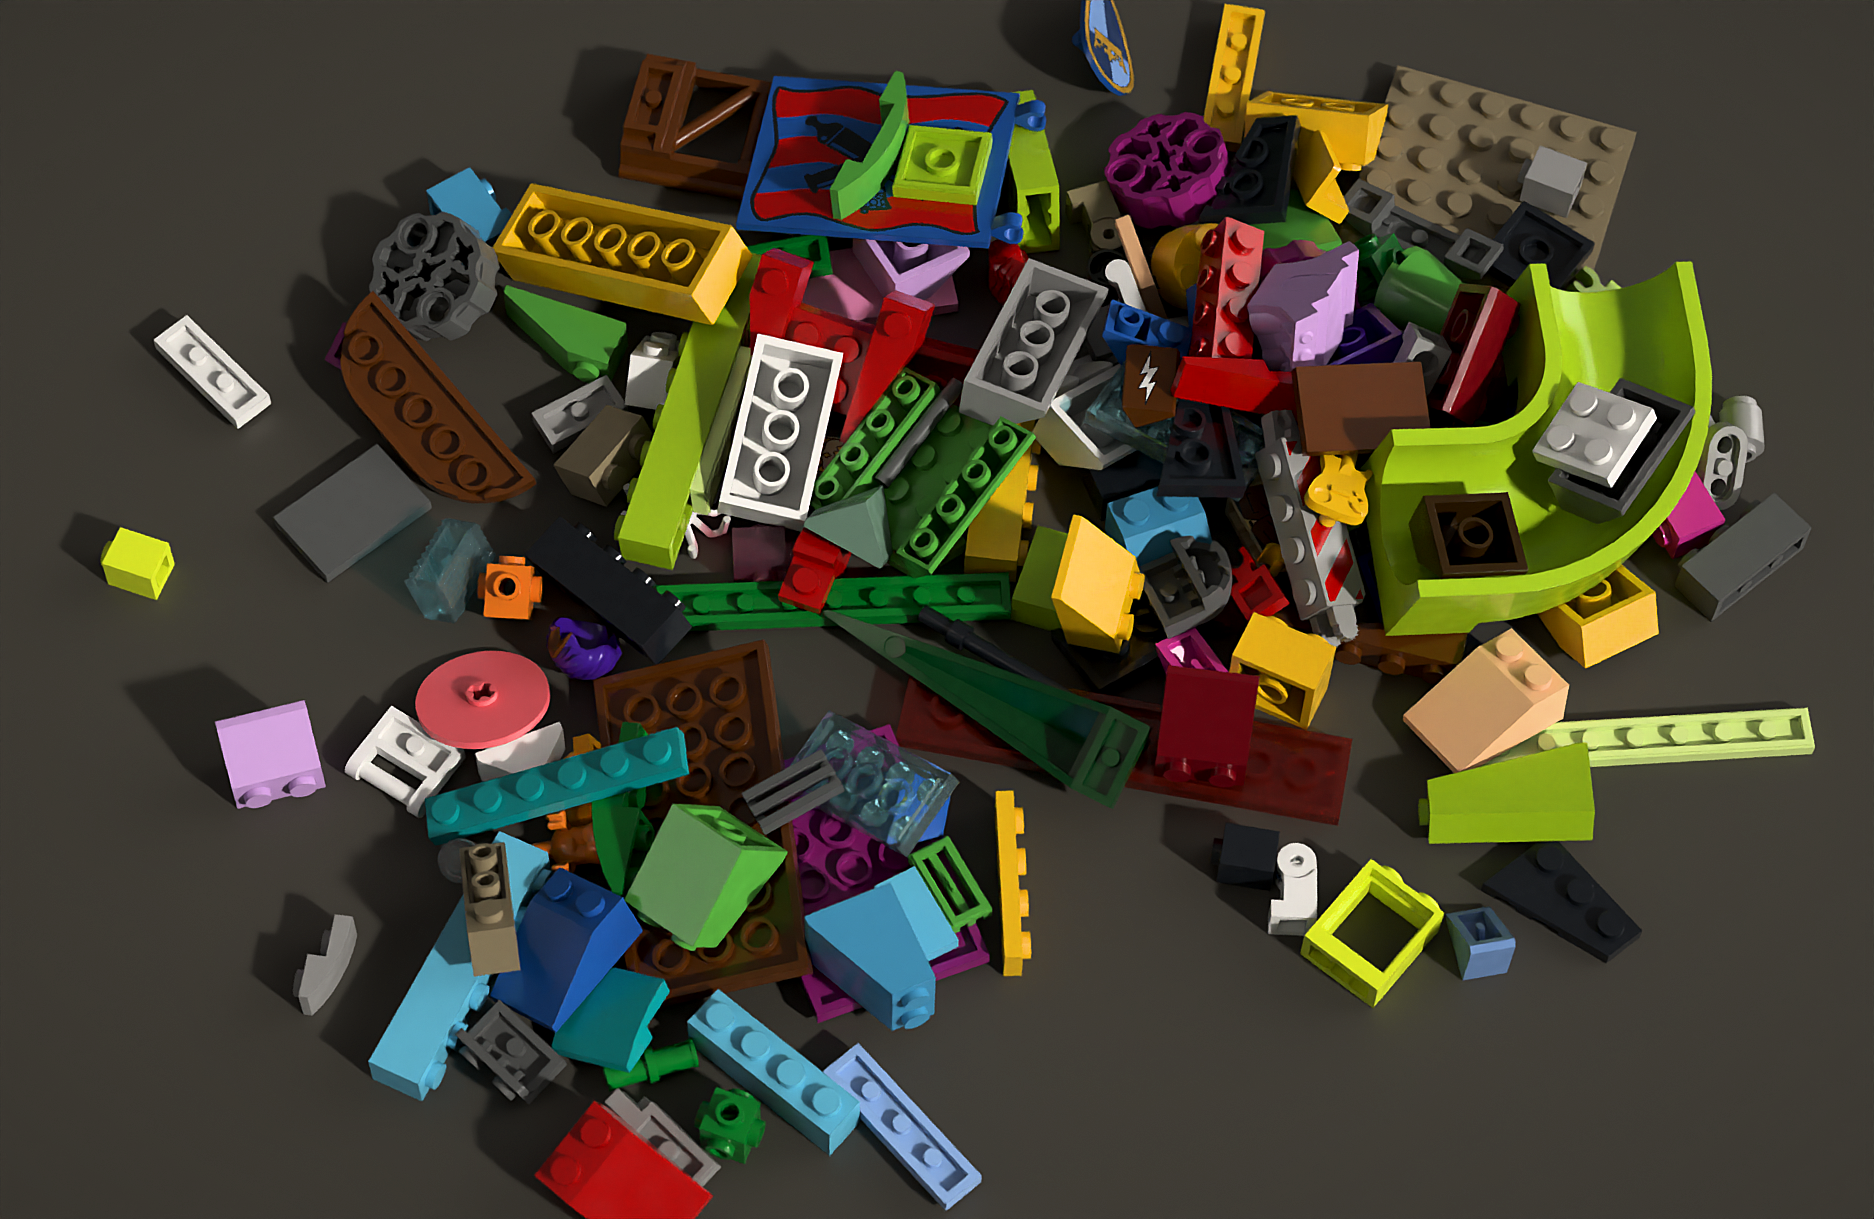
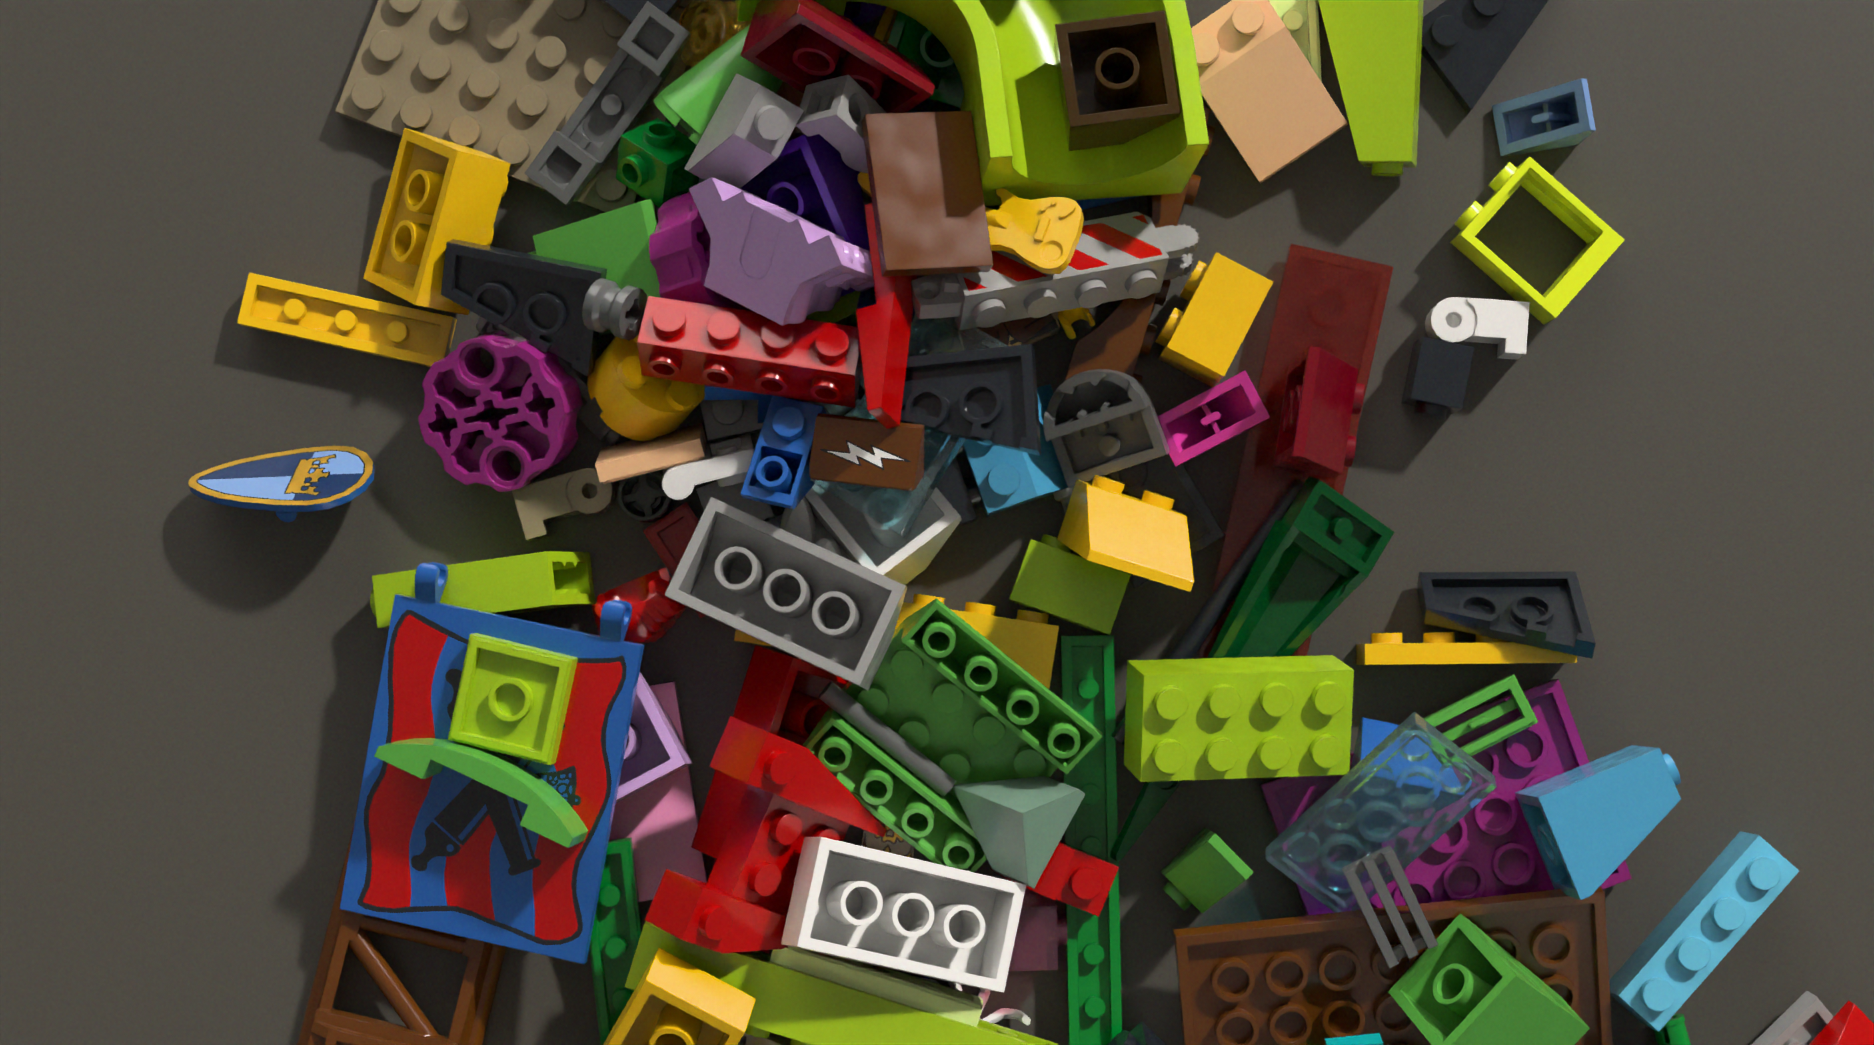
camera: 90 degrees left, 25 degrees up
(730, 1124) = (1748, 976): green brick -> none
(818, 679) = (1204, 872): none -> bright green slope
(904, 1128) = (1759, 785): light blue plate -> none
(923, 914) = (1526, 759): medium azure tile -> none
(948, 676) = (1238, 718): none -> lime brick
(1049, 913) = (1510, 606): none -> black wing
(1256, 589) = (1122, 341): red plate -> none
(1259, 212) = (614, 309): none -> dark grey wheel
(1315, 177) = (537, 221): yellow panel -> none
(1399, 294) = (744, 134): none -> light grey slope

